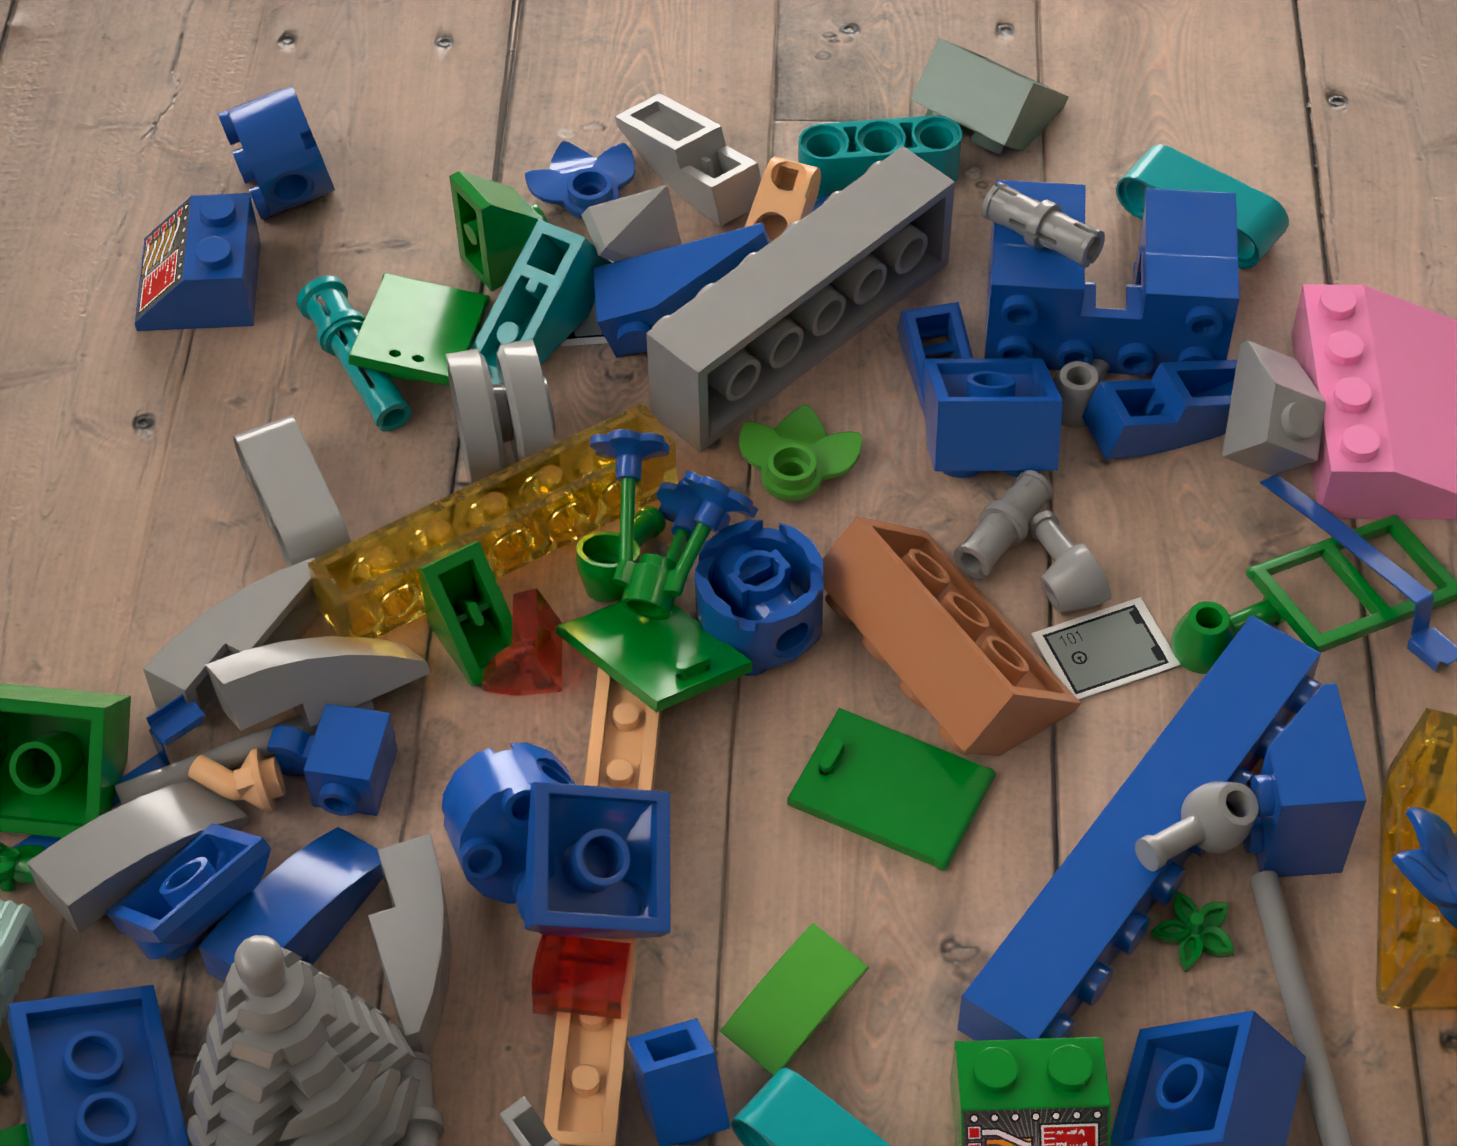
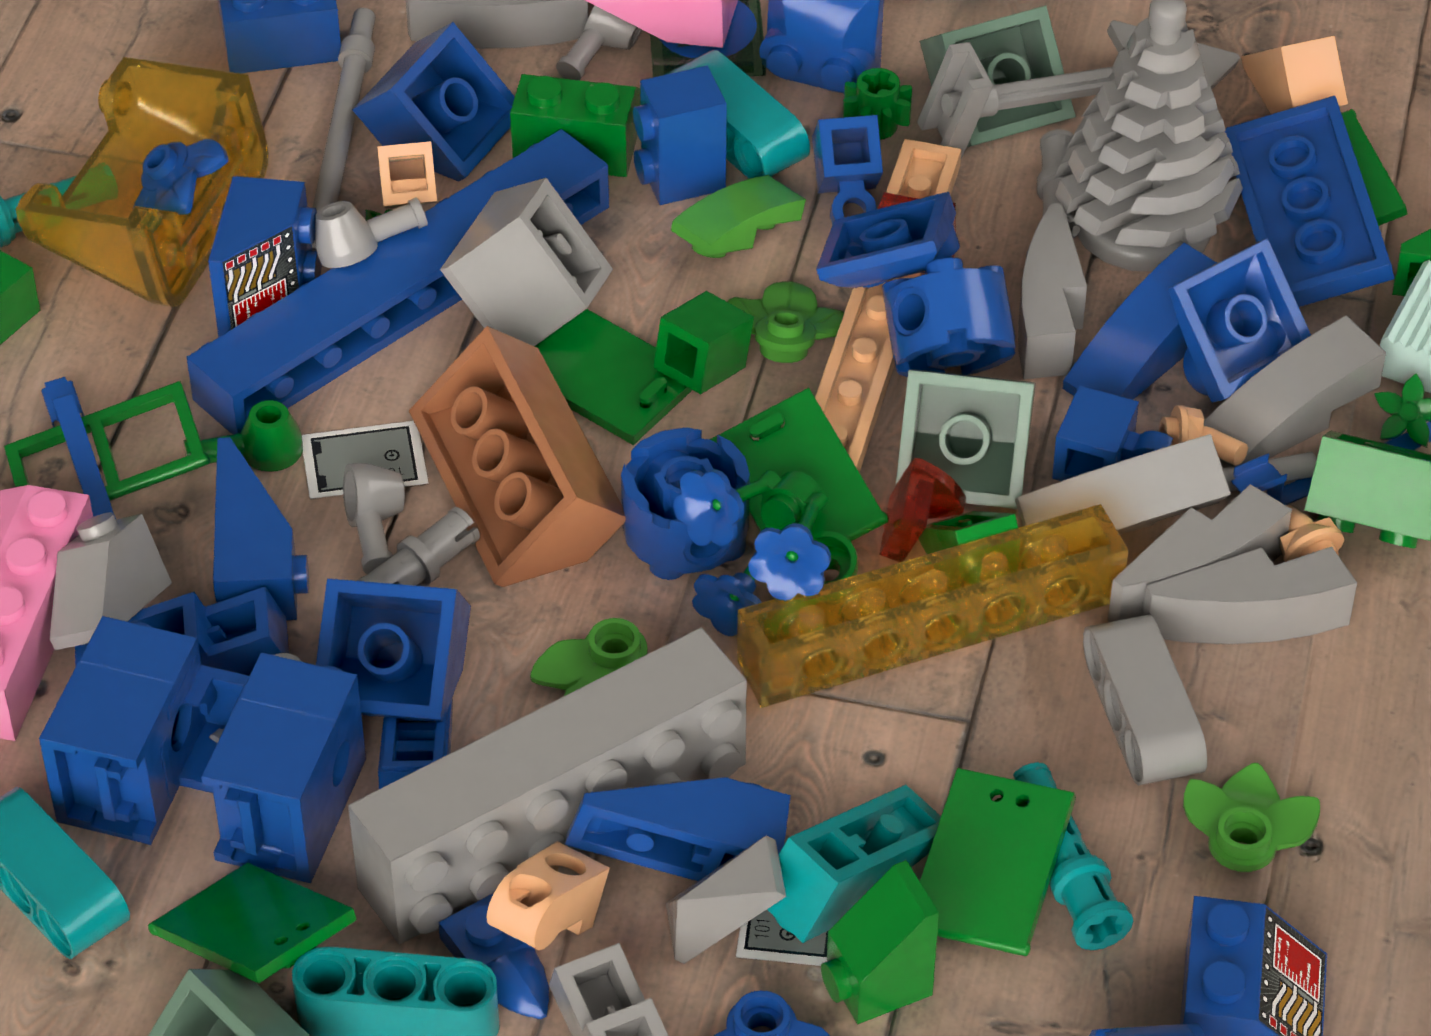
camera: 170 degrees left, 5 degrees down
(122, 673) = (1309, 536): none -> light nougat plate
(154, 607) = (1253, 599): none -> light grey slope
(195, 417) = (1249, 813): none -> bright green plate
(460, 725) = (970, 431): none -> sand green slope
(510, 411) = (909, 698): light grey wheel -> none
(716, 883) = (789, 320): none -> bright green plate
(788, 798) = (703, 342): none -> green brick
(885, 1054) = (681, 135): none -> blue brick
(1001, 153) = (253, 922): none -> green container
(1007, 830) = (526, 263): none -> light grey slope
(1043, 224) = (280, 699): light grey pin -> none
(1168, 508) = (252, 537): none -> blue slope
(1196, 950) = (407, 173): none -> light nougat leg

